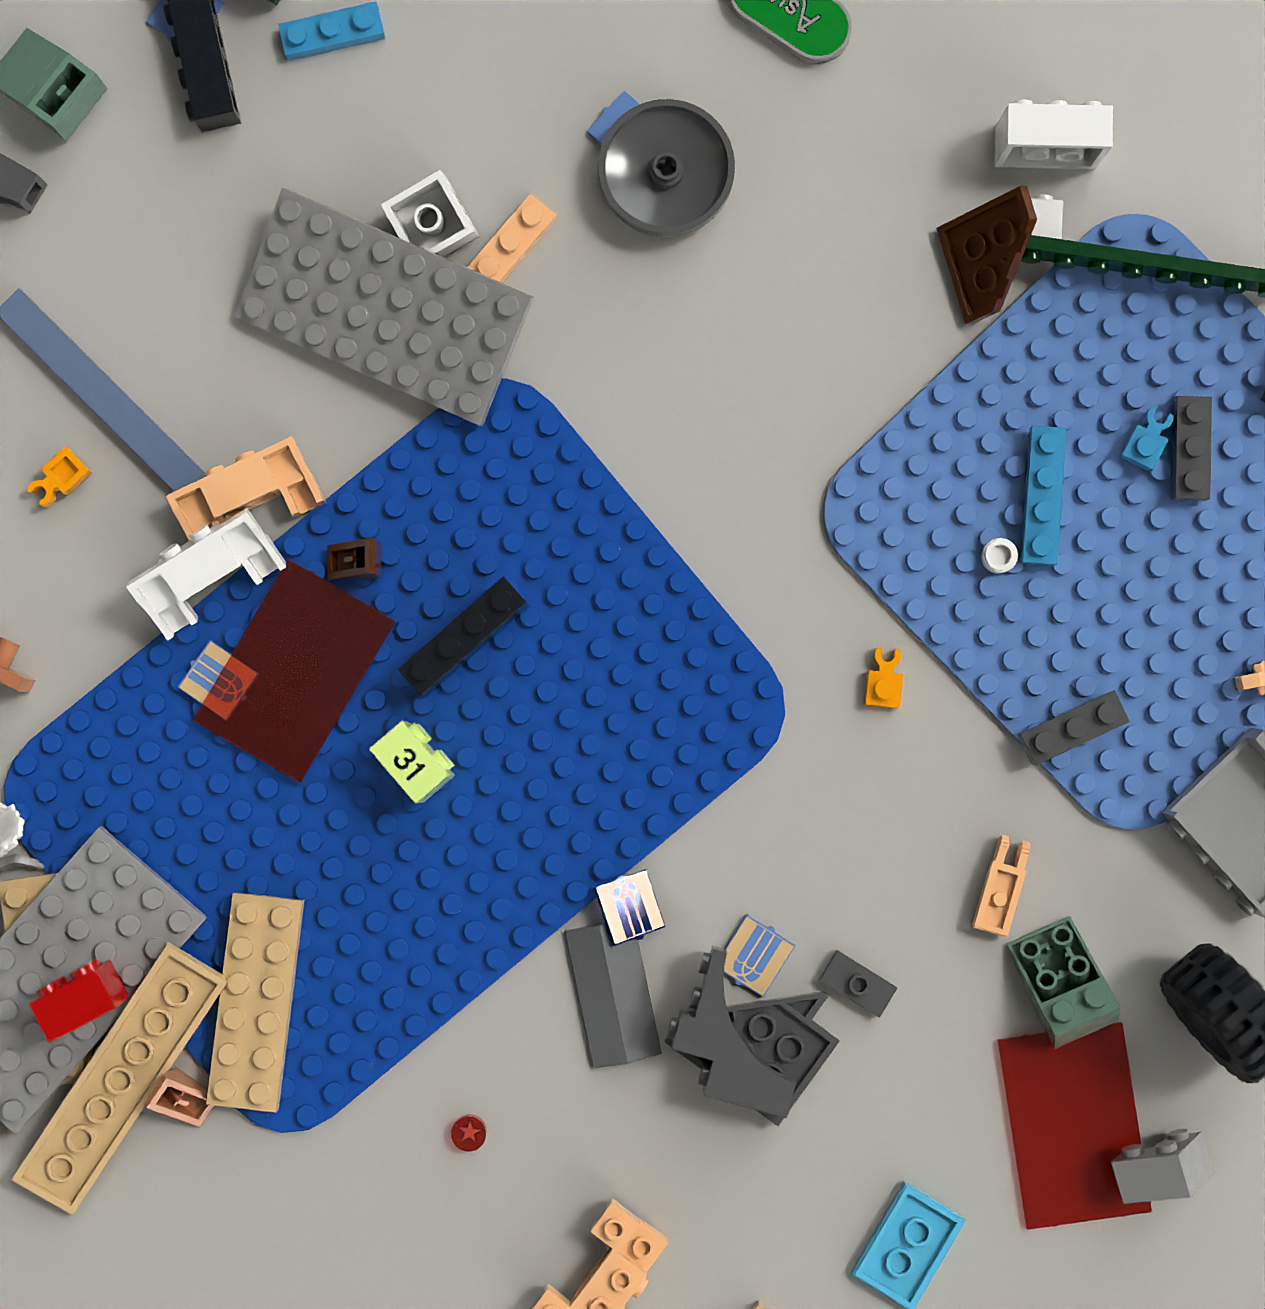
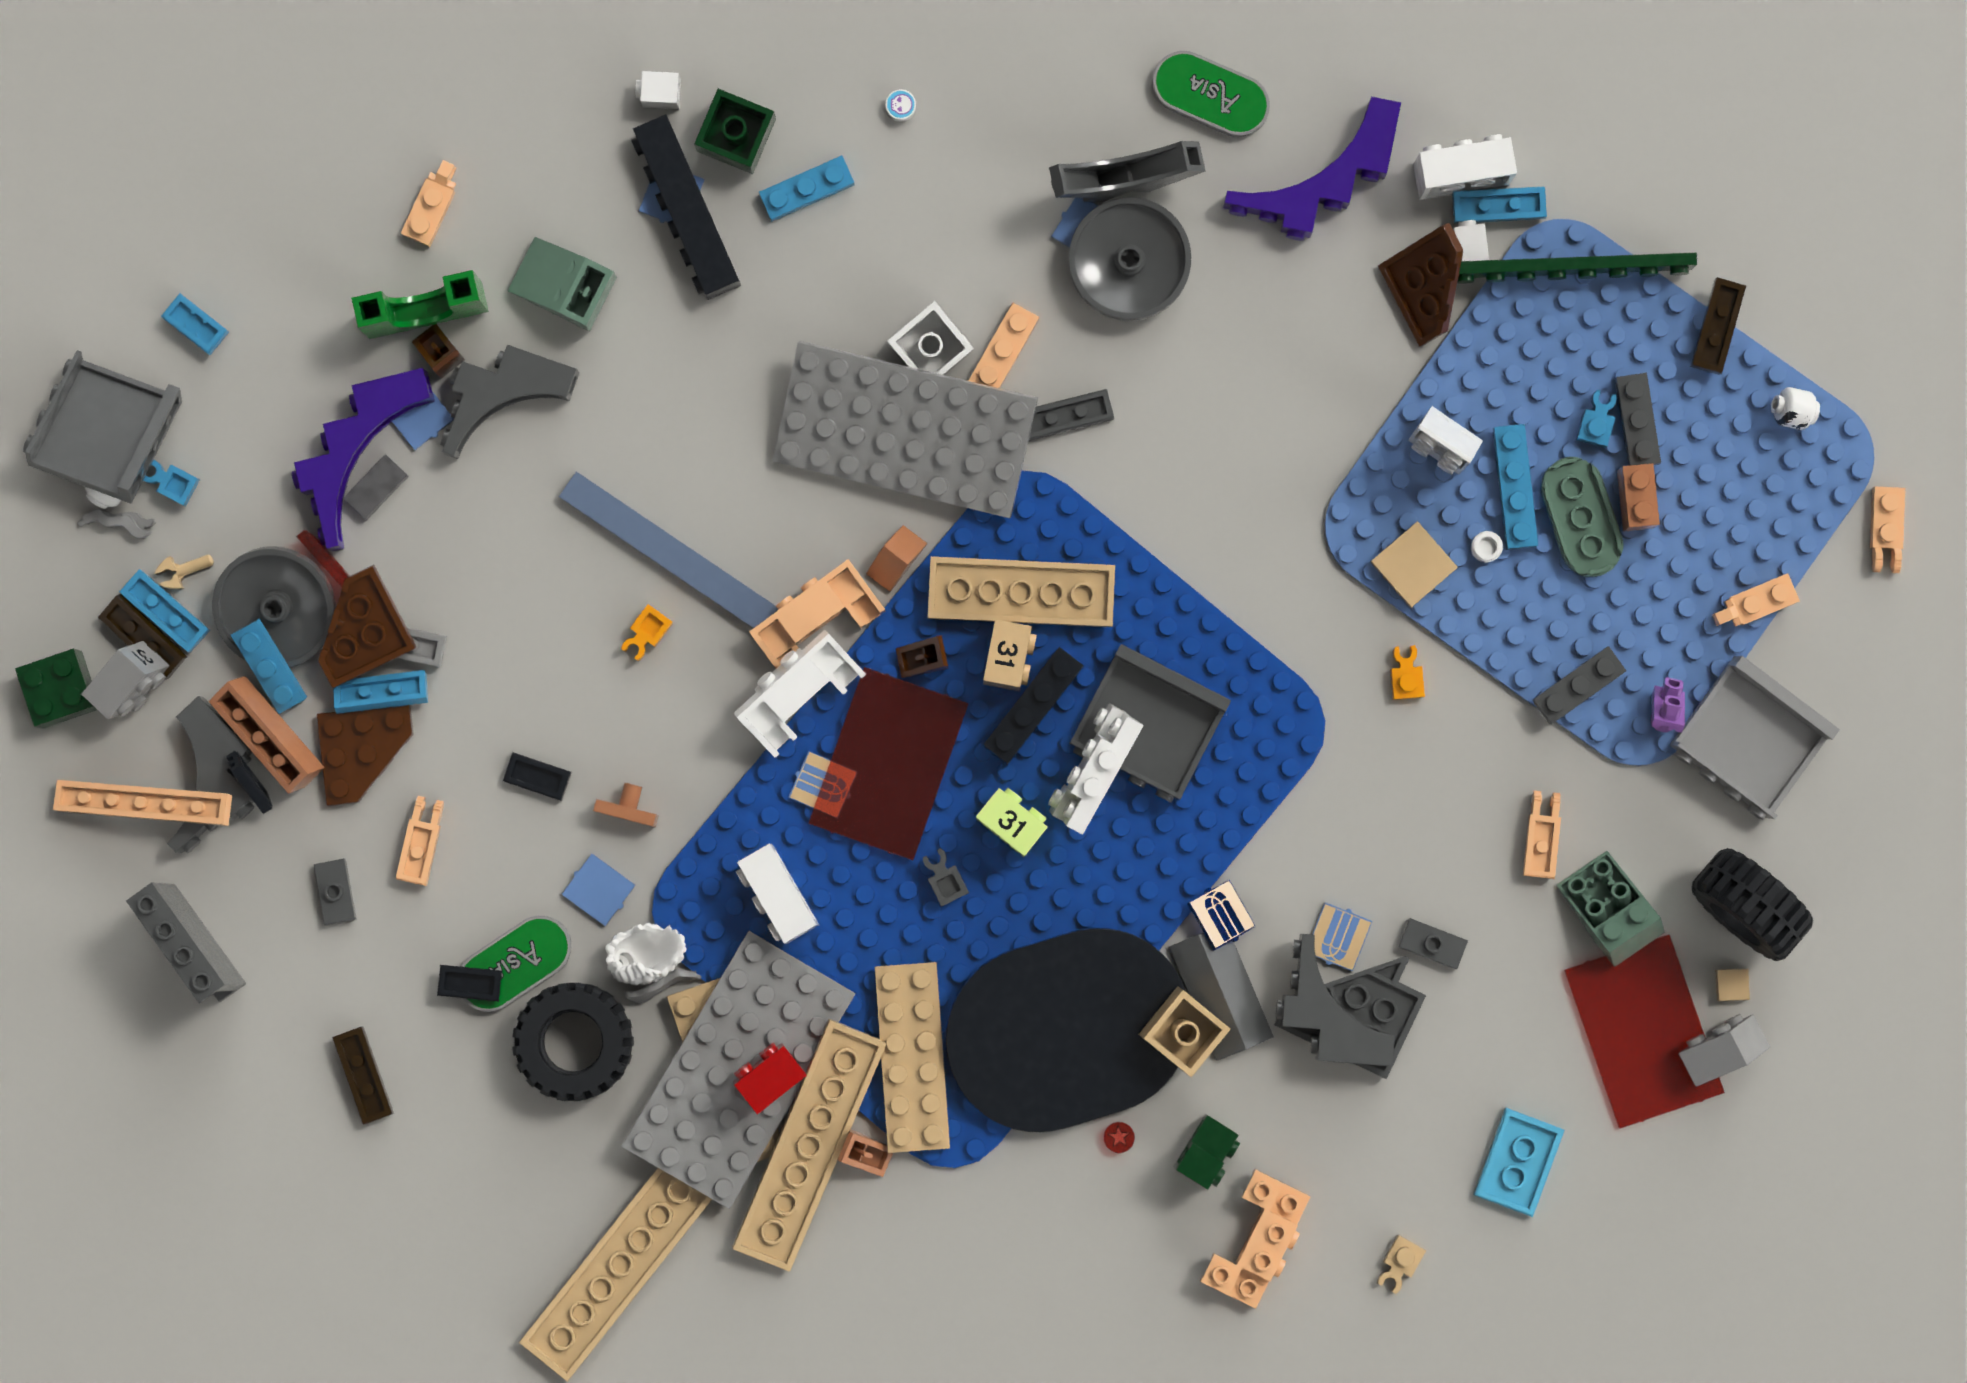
camera: 10 degrees left, 0 degrees up
(136, 792) = (776, 894): none -> white brick
(331, 814) = (947, 882): none -> dark grey plate
(348, 447) = (896, 558): none -> nougat slope
(433, 1004) = (1055, 1030): none -> black tile
(446, 575) = (1008, 655): none -> tan brick
(476, 508) = (1021, 591): none -> tan plate
(518, 721) = (1097, 770): none -> white bracket
(554, 1177) = (1205, 1152): none -> dark green brick
(560, 1033) = (1184, 1031): none -> tan brick
(568, 327) = (1071, 414): none -> dark grey tile
(589, 681) = (1175, 716): none -> dark grey panel
(693, 73) = (1132, 173): none -> dark grey arch
(900, 132) = (1333, 186): none -> dark purple arch
(915, 560) = (1414, 564): none -> tan tile
(975, 430) = (1445, 441): none -> white slope
(1083, 186) = (1499, 204): none -> dark azure plate
(1110, 542) = (1581, 517): none -> sand green tile
(1170, 770) = (1668, 706): none -> medium lavender hips
(1178, 531) = (1638, 497): none -> nougat brick
(1182, 1092) = (1732, 984): none -> tan tile

